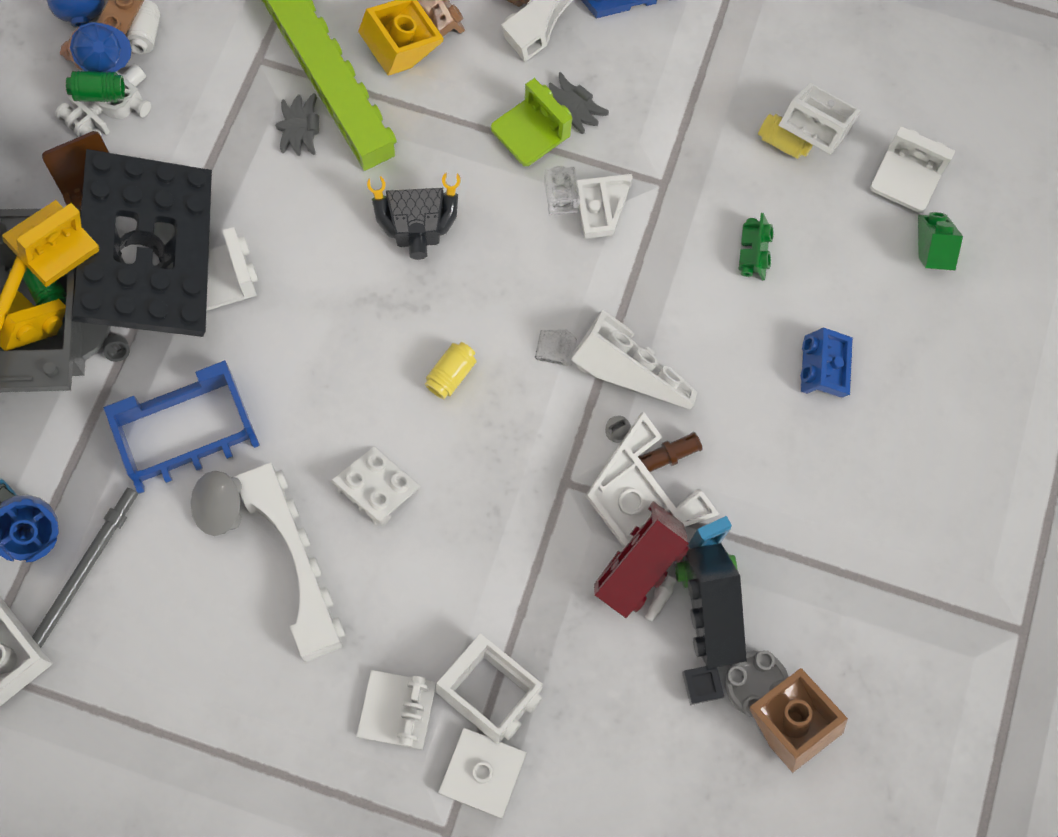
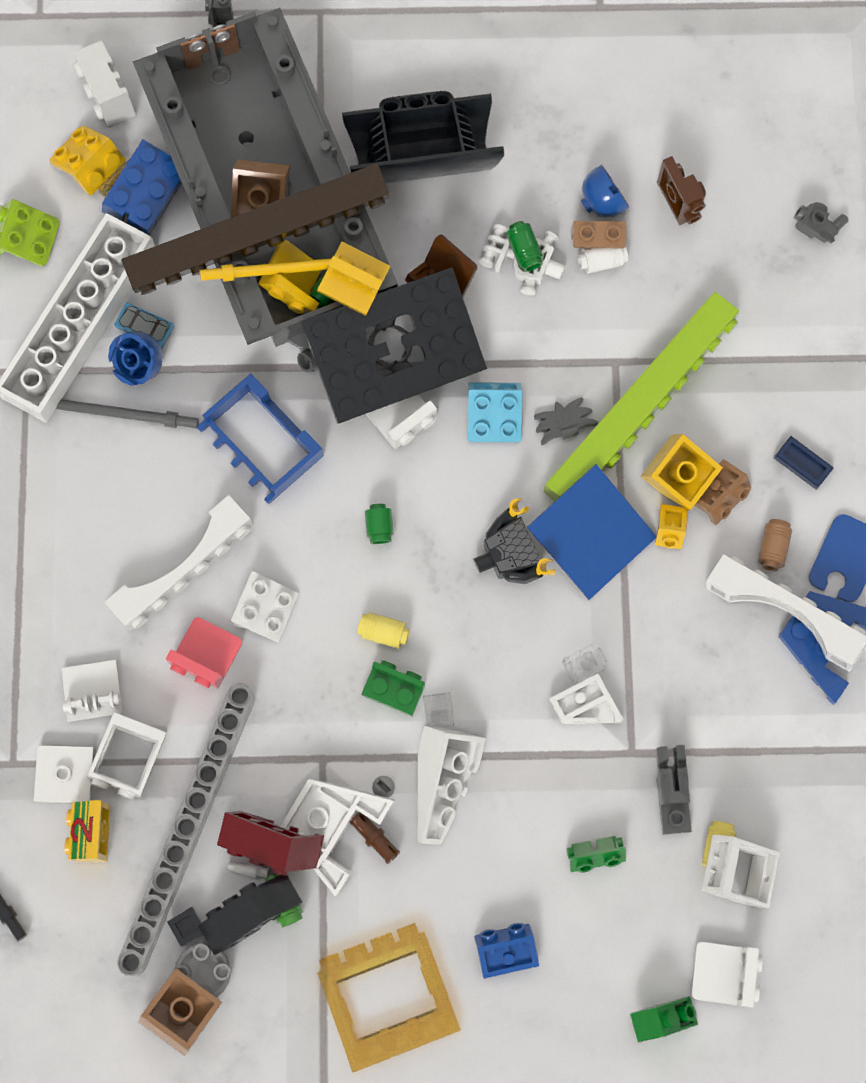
camera: 75 degrees right, 5 degrees up
(97, 48) = (559, 233): blue piece -> none
(216, 503) = (204, 490): light grey dish -> none
(260, 181) = (494, 412): none -> medium azure bracket
(332, 336) = (379, 524): none -> green brick
(403, 565) = (205, 653): none -> coral bracket
(427, 135) = (591, 532): none -> blue piece
(452, 63) = (671, 526): none -> yellow bracket
(515, 381) = (393, 687): none -> green bracket
(534, 124) = (637, 617): lime bracket -> none
(562, 761) = (88, 831): none -> yellow slope
(578, 102) = (678, 646): dark grey piece -> none
(601, 663) = (186, 842): none -> light grey beam
(711, 533) = (308, 892): dark azure tile -> none
(716, 154) = (673, 791): none -> dark grey plate
(885, 494) = (403, 1035): none -> clear yellow hinge

